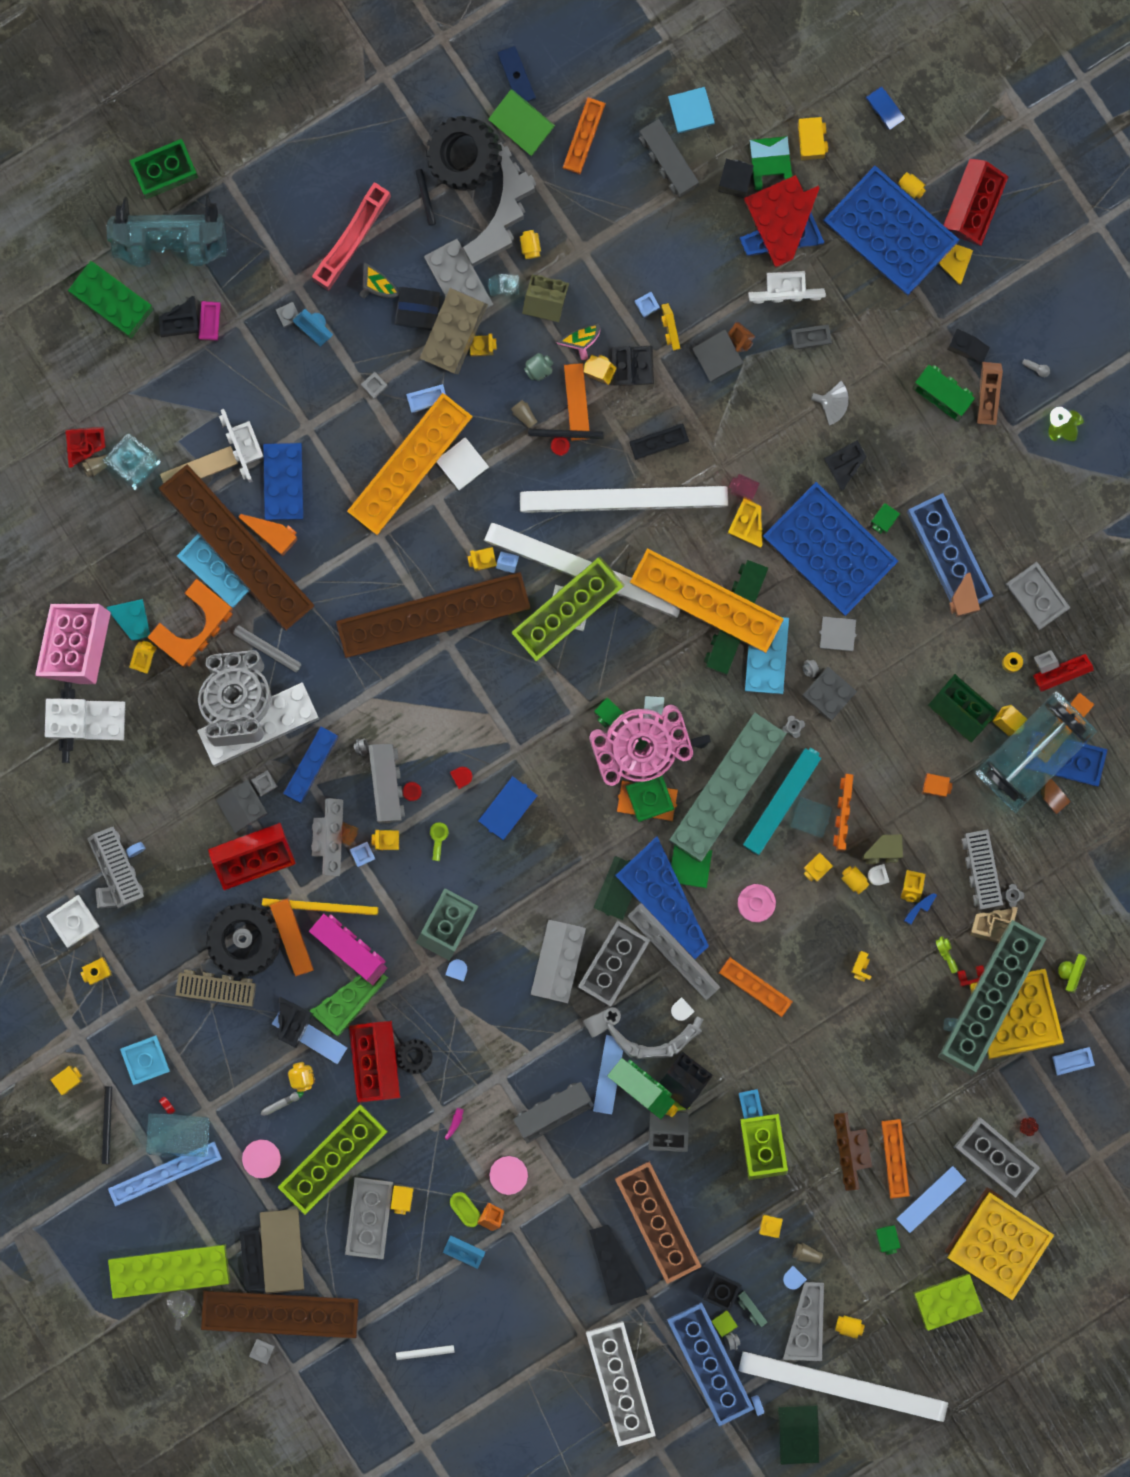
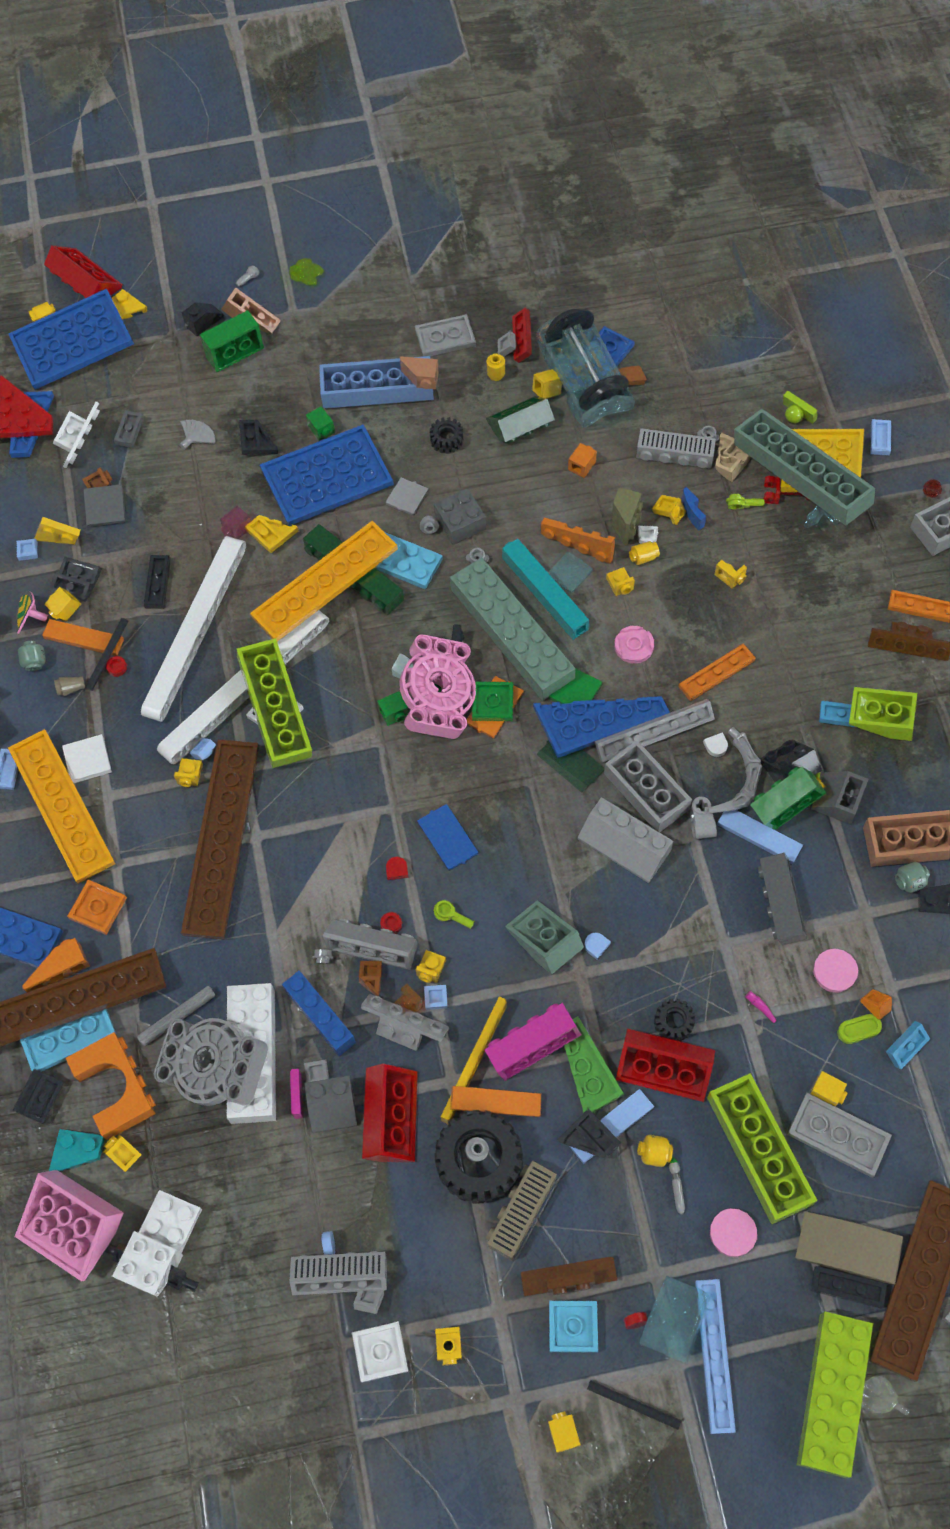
camera: 65 degrees left, 20 degrees down
(160, 569) = (37, 1096): none -> black plate
(180, 1044) = (568, 1276): none -> reddish brown bracket
(239, 775) = (296, 1093): none -> dark pink tile
(332, 539) = (97, 907): none -> orange plate
(359, 794) = (370, 975): none -> dark orange slope
(614, 1215) = (912, 877): none -> sand green head
(917, 656) = (446, 426): none -> black tyre

